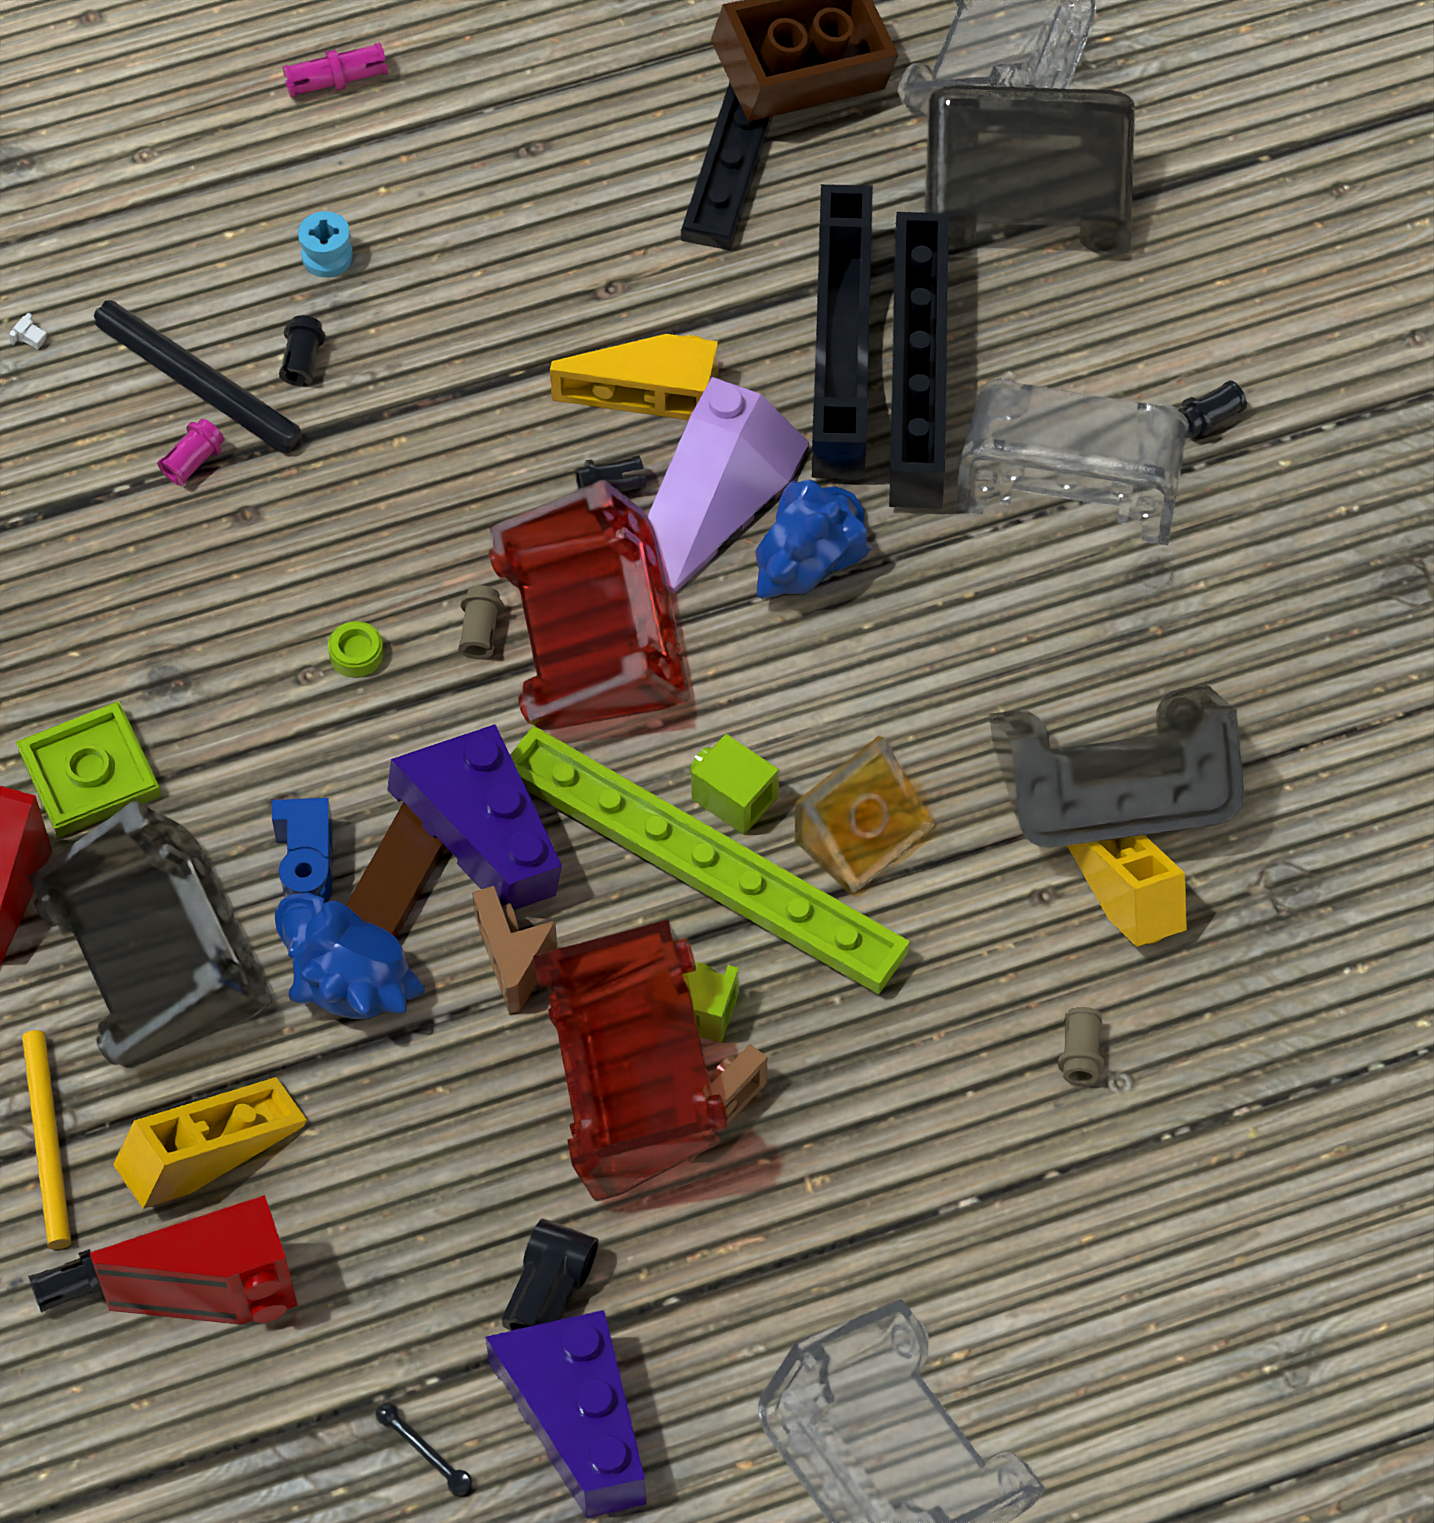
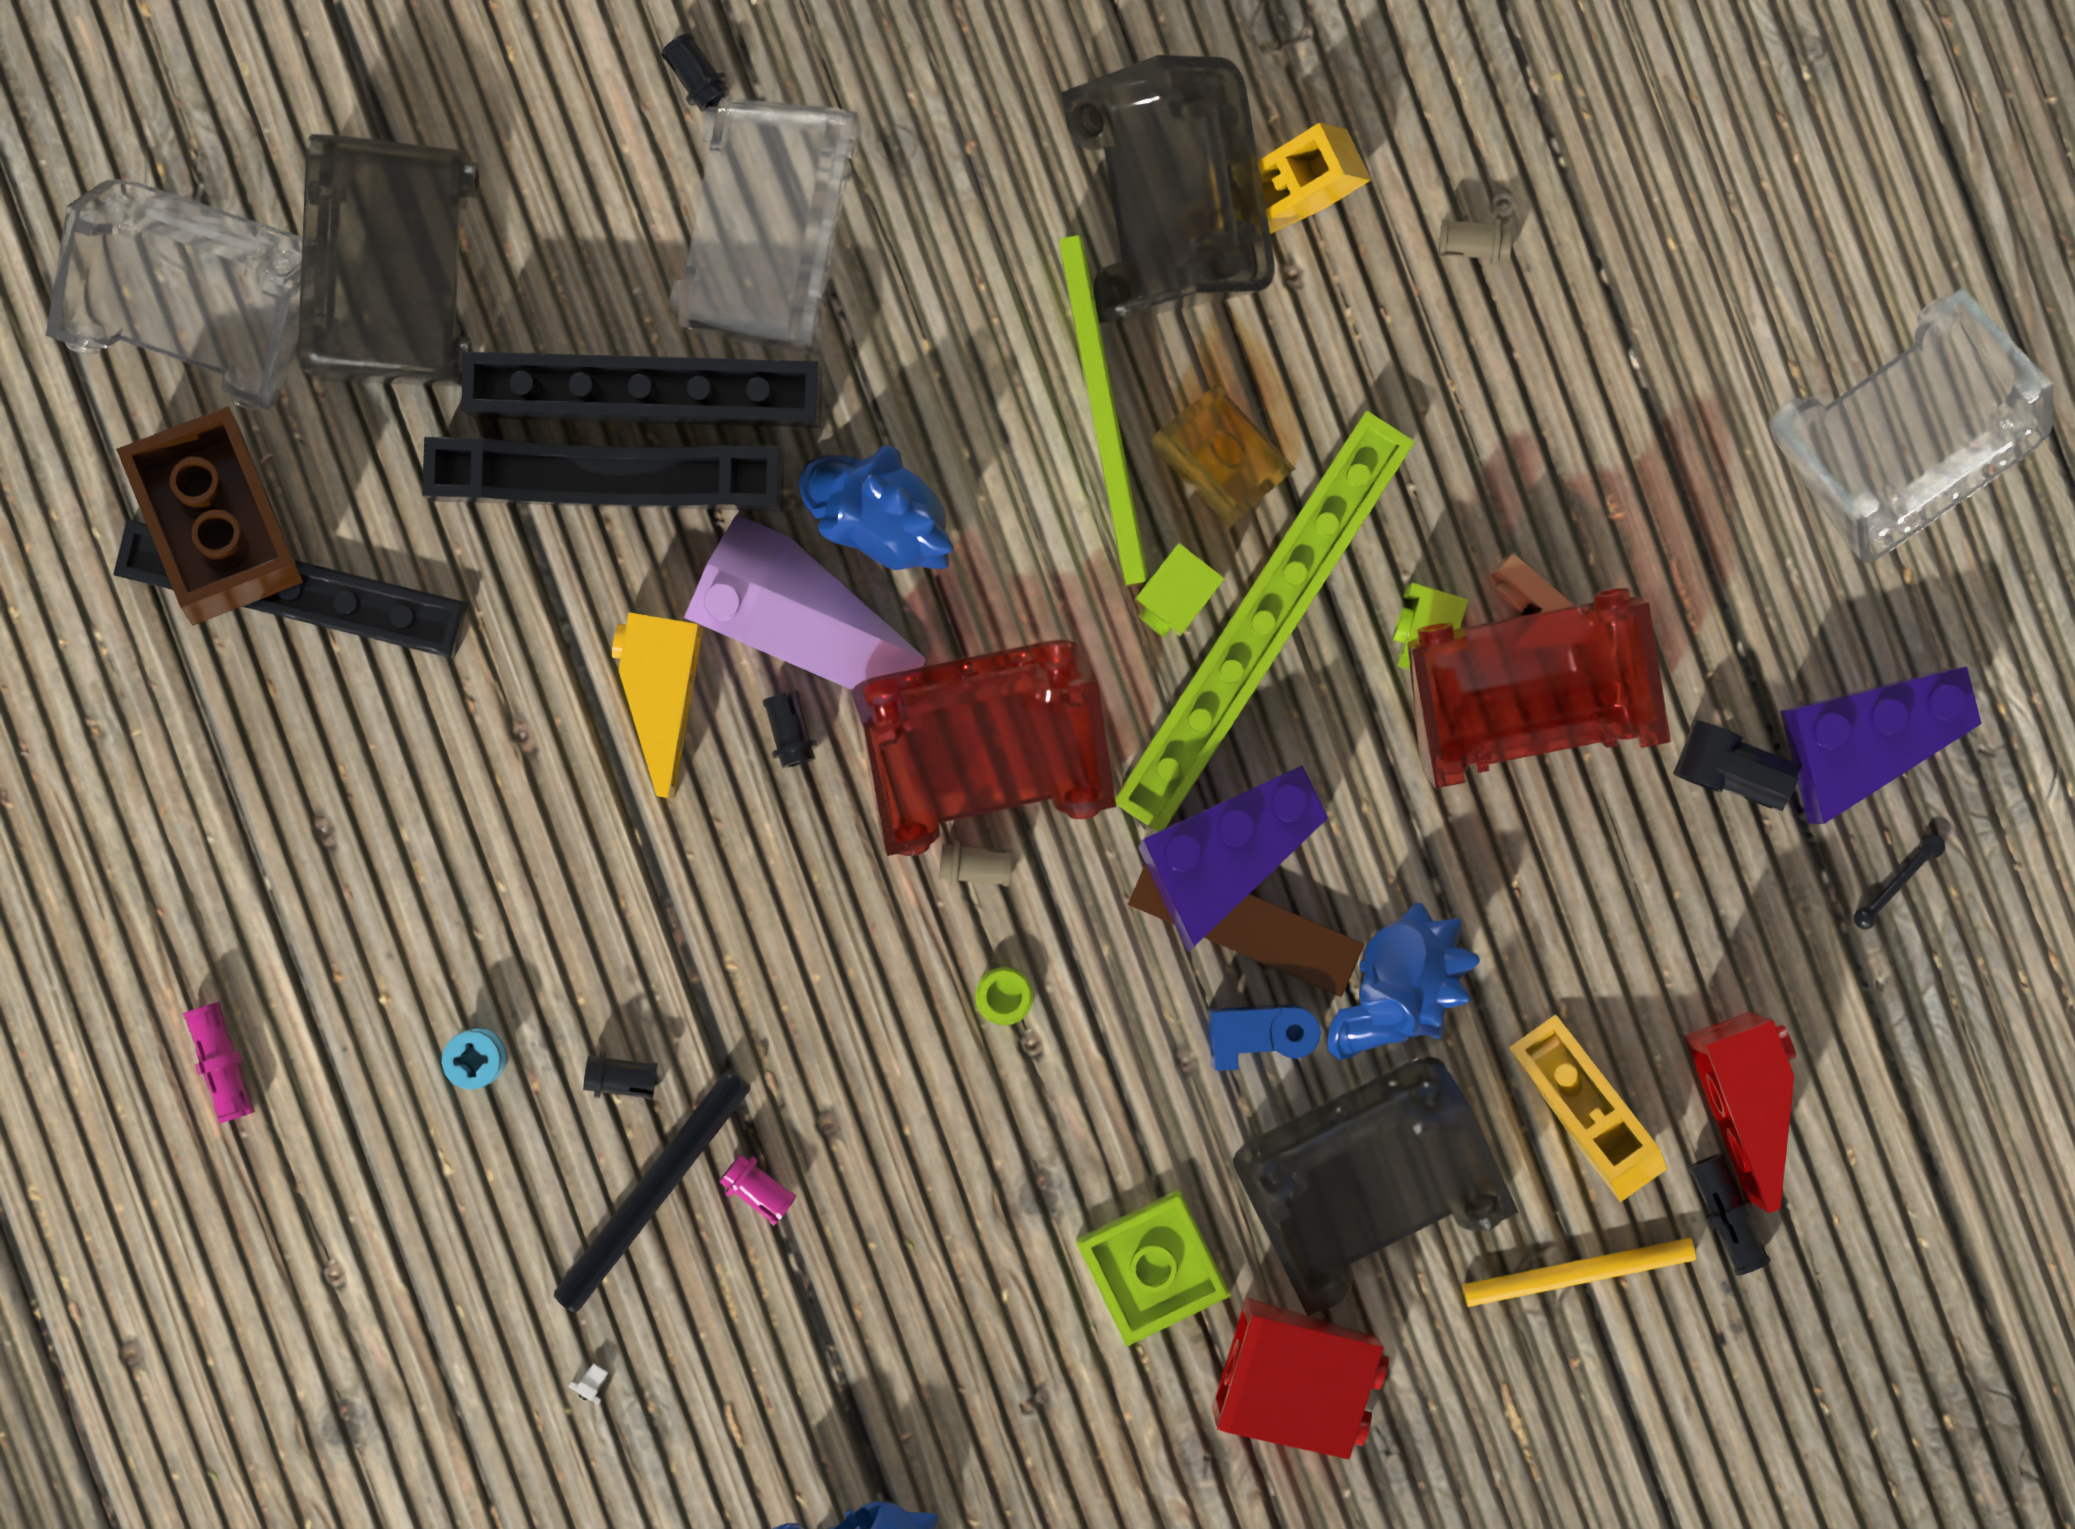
camera: 95 degrees left, 30 degrees up
(511, 949) = (1388, 814): medium nougat slope -> none
(904, 720) = (1103, 411): none -> lime tile

